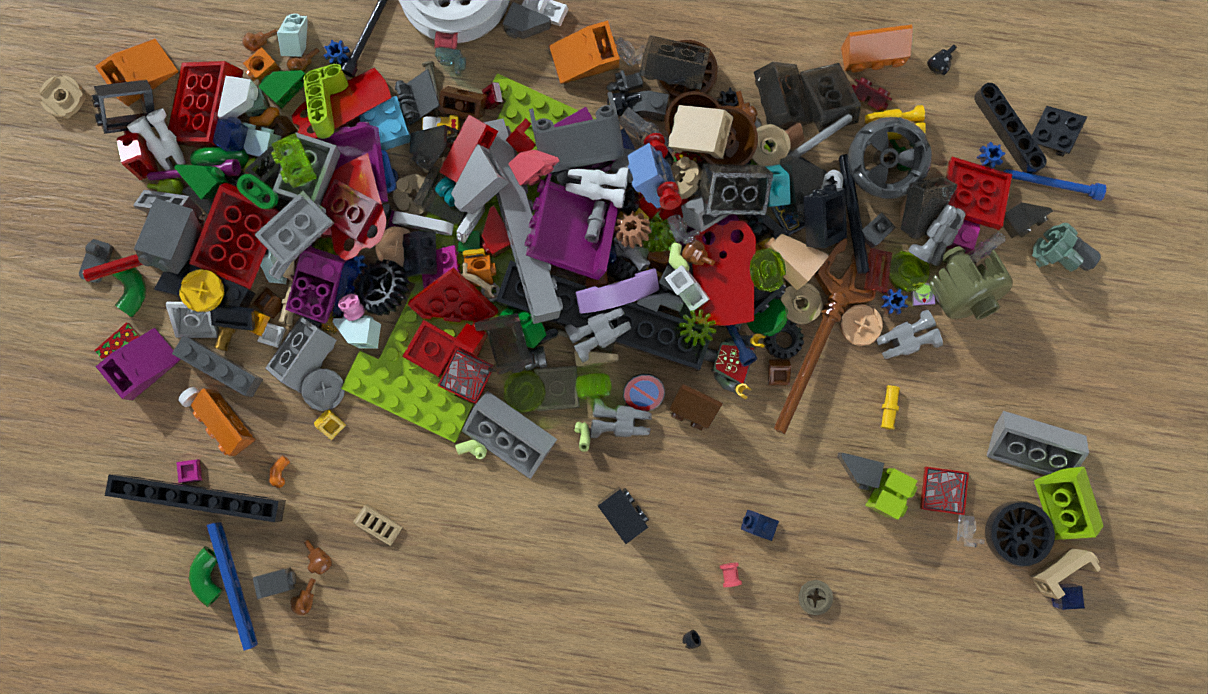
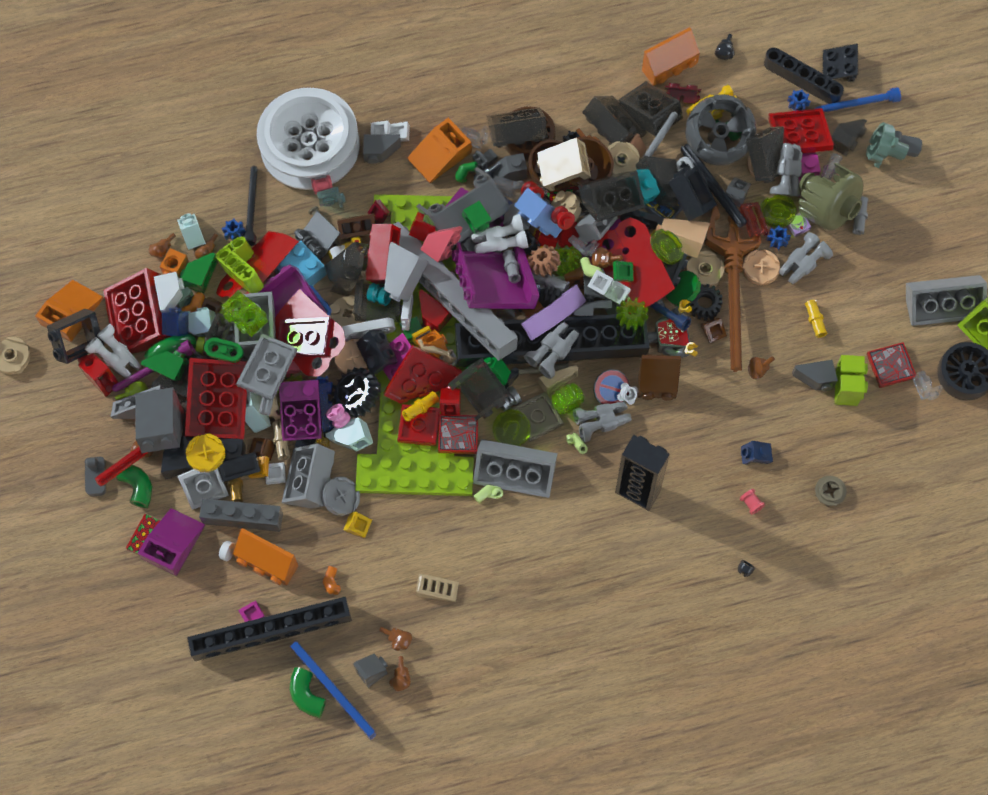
camera: 25 degrees left, 15 degrees down
(438, 332) = (420, 406): none -> yellow pin
(580, 155) = (476, 217): none -> green brick
(601, 85) = (463, 170): none -> green arm
(657, 411) = (630, 399): none -> white plate
(709, 277) = (623, 271): none -> green tile
(805, 435) = (759, 366): none -> dark orange piece
(987, 322) = (859, 220): none -> light grey pin

